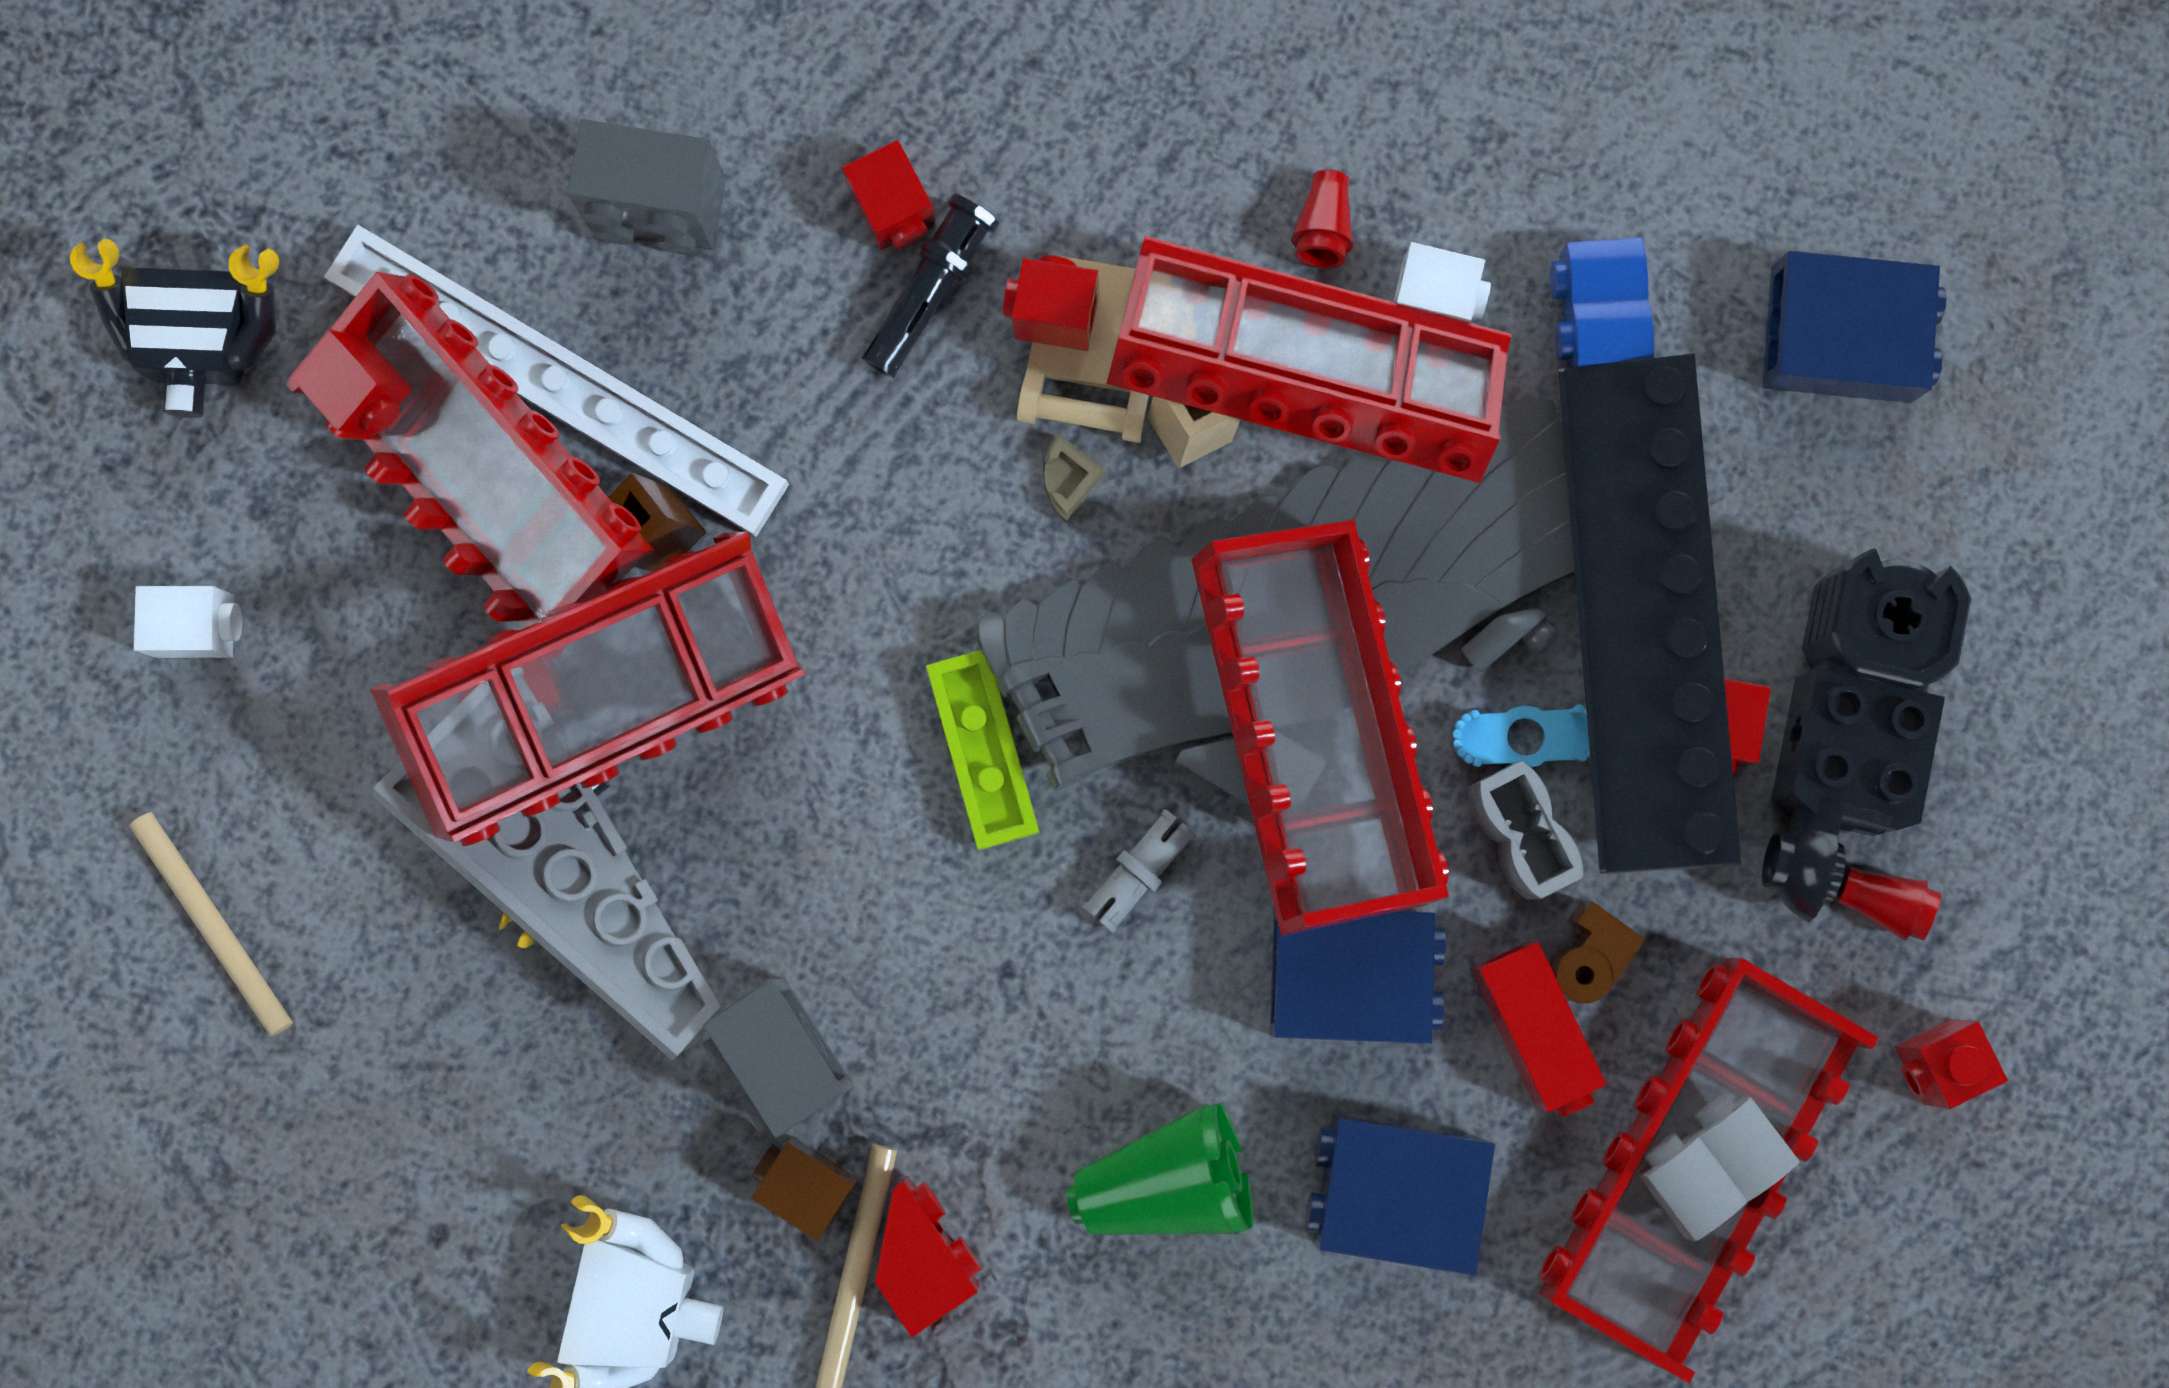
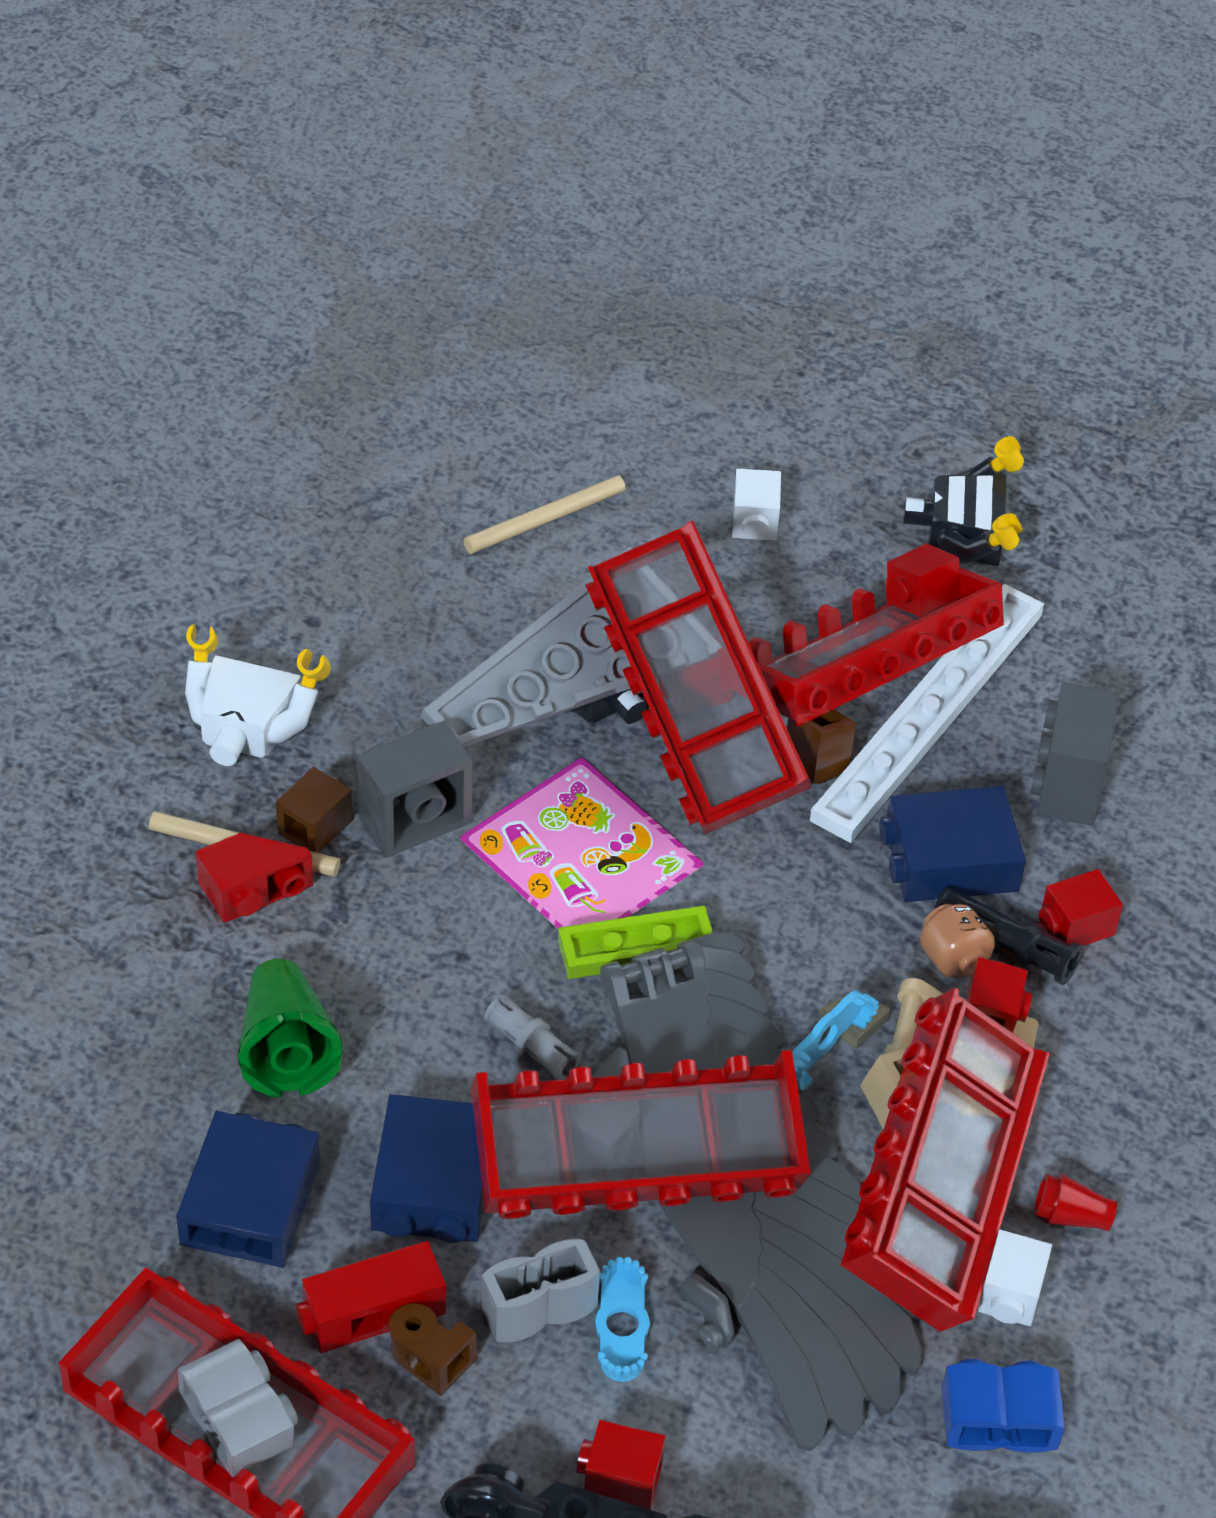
camera: 95 degrees right, 35 degrees down
(791, 352) = (953, 841): none -> dark blue brick
(822, 832) = (581, 849): none -> sticker
(956, 348) = (955, 939): none -> nougat head
(1080, 470) = (853, 1009): none -> medium azure piece
(1648, 616) = (723, 1394): black plate -> none

